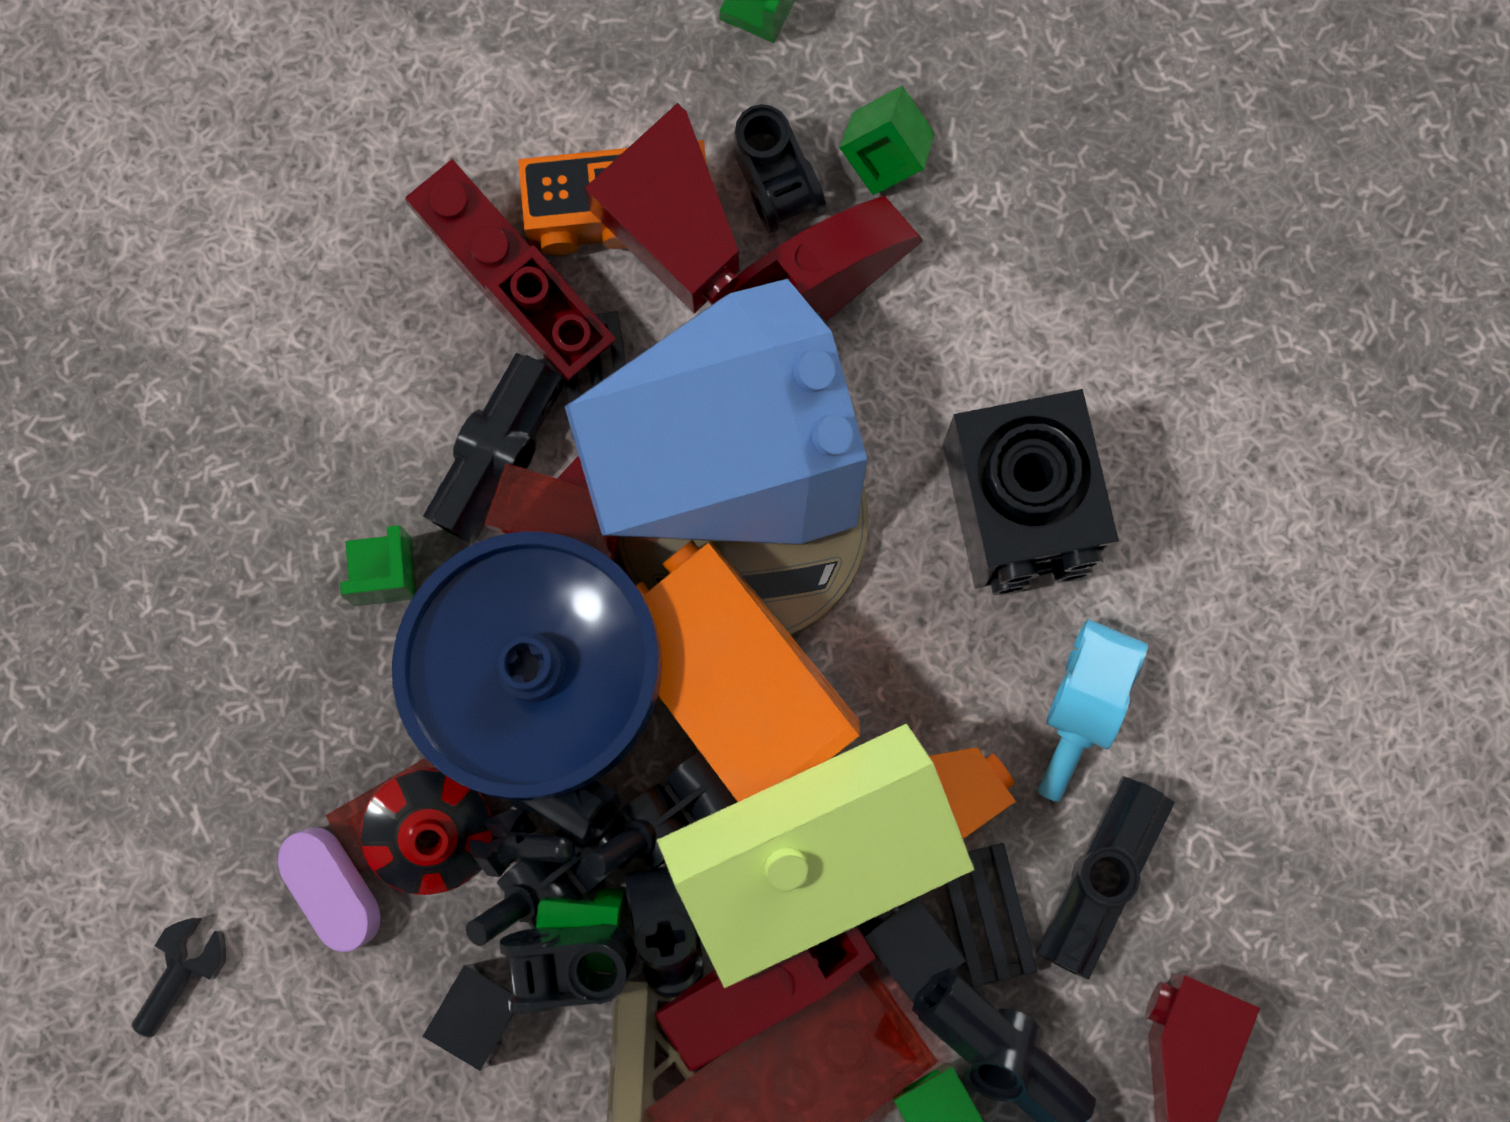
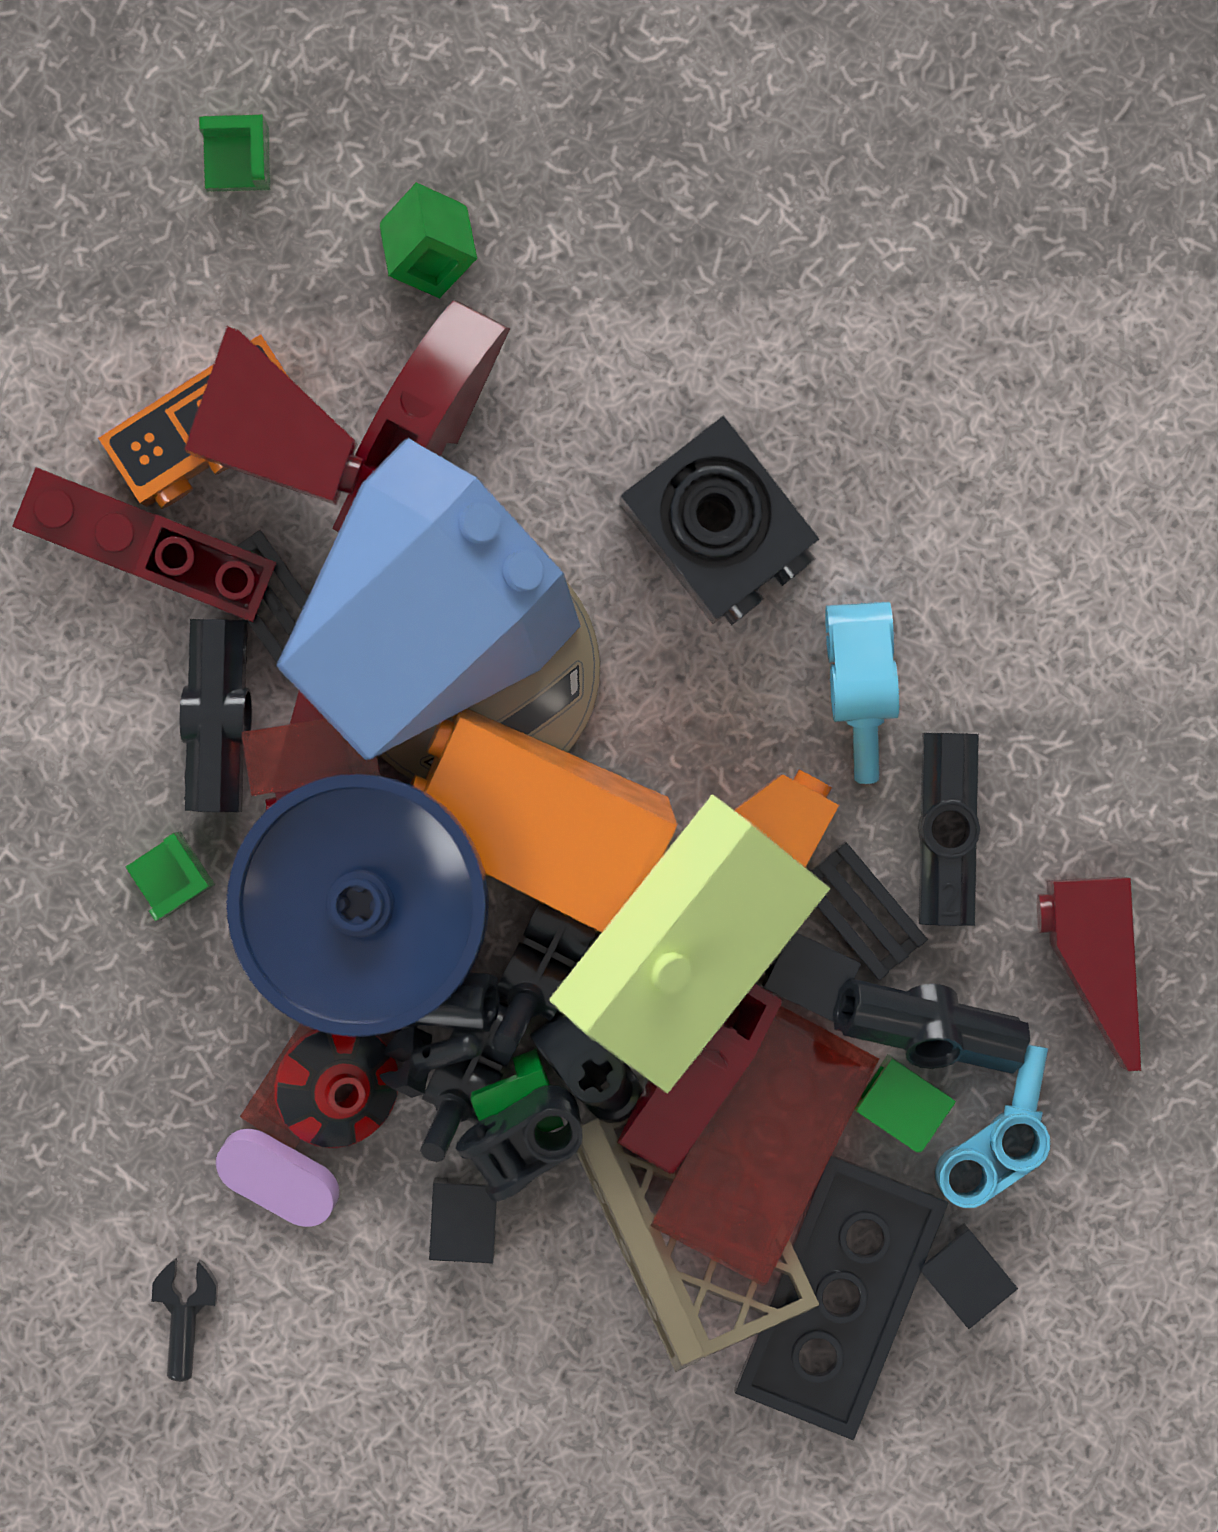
camera: 25 degrees left, 10 degrees up
(778, 178) = (341, 324): black piece -> none

